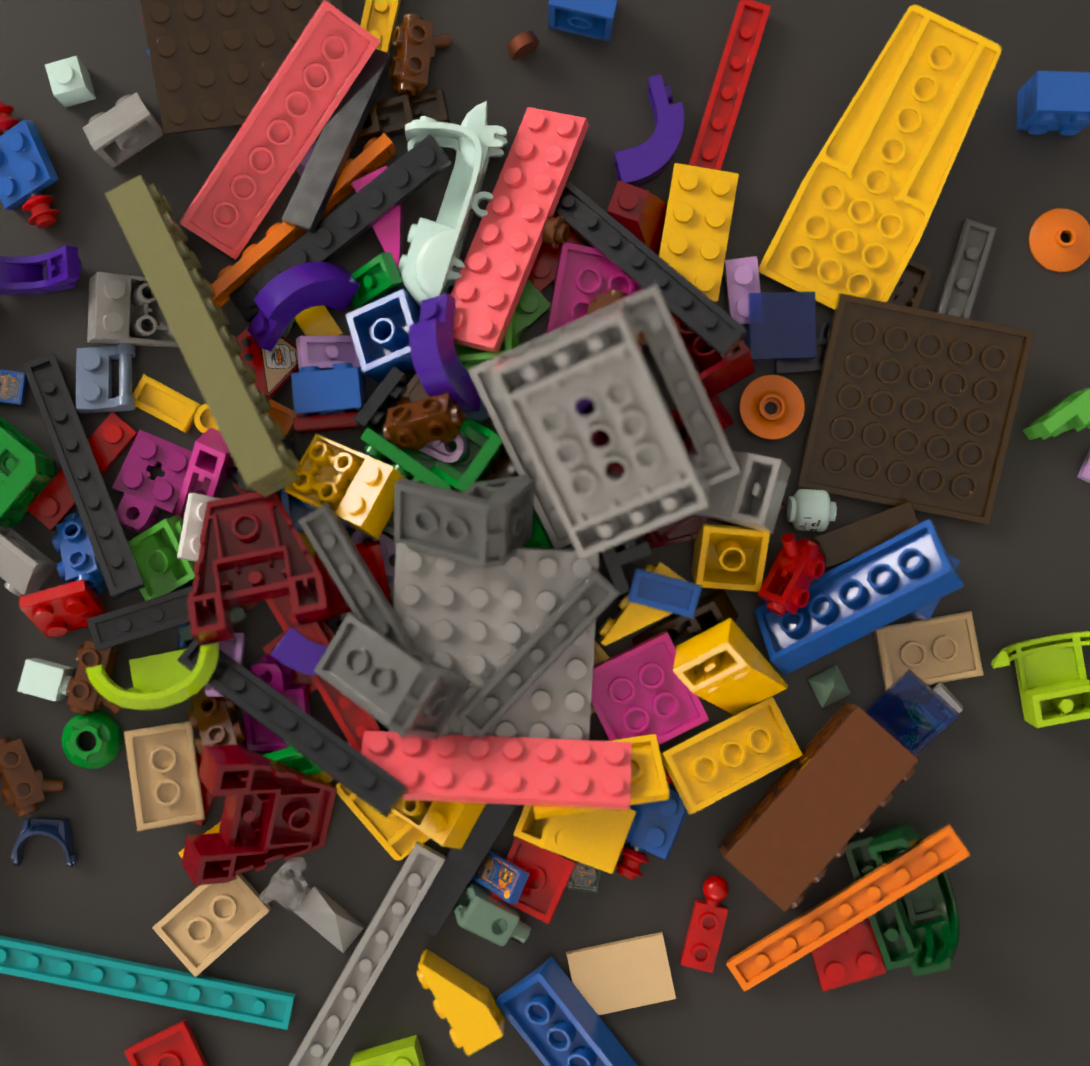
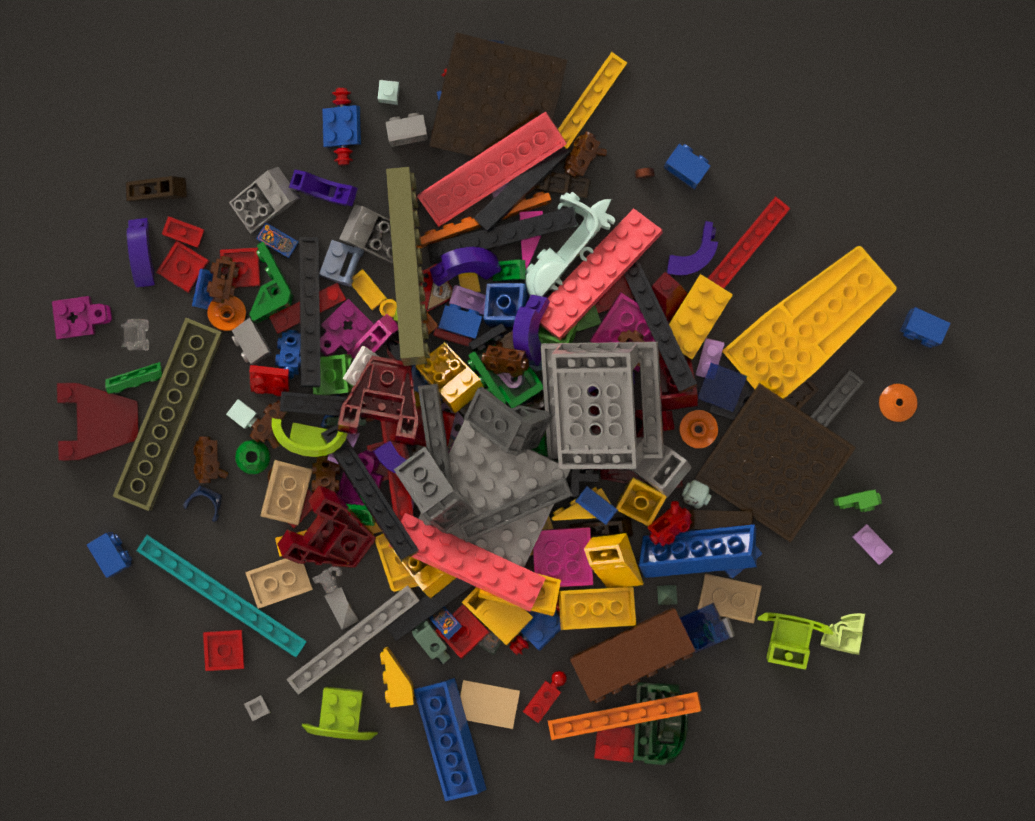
camera: 25 degrees right, 0 degrees up
(556, 231) = (619, 286): reddish brown plate -> none

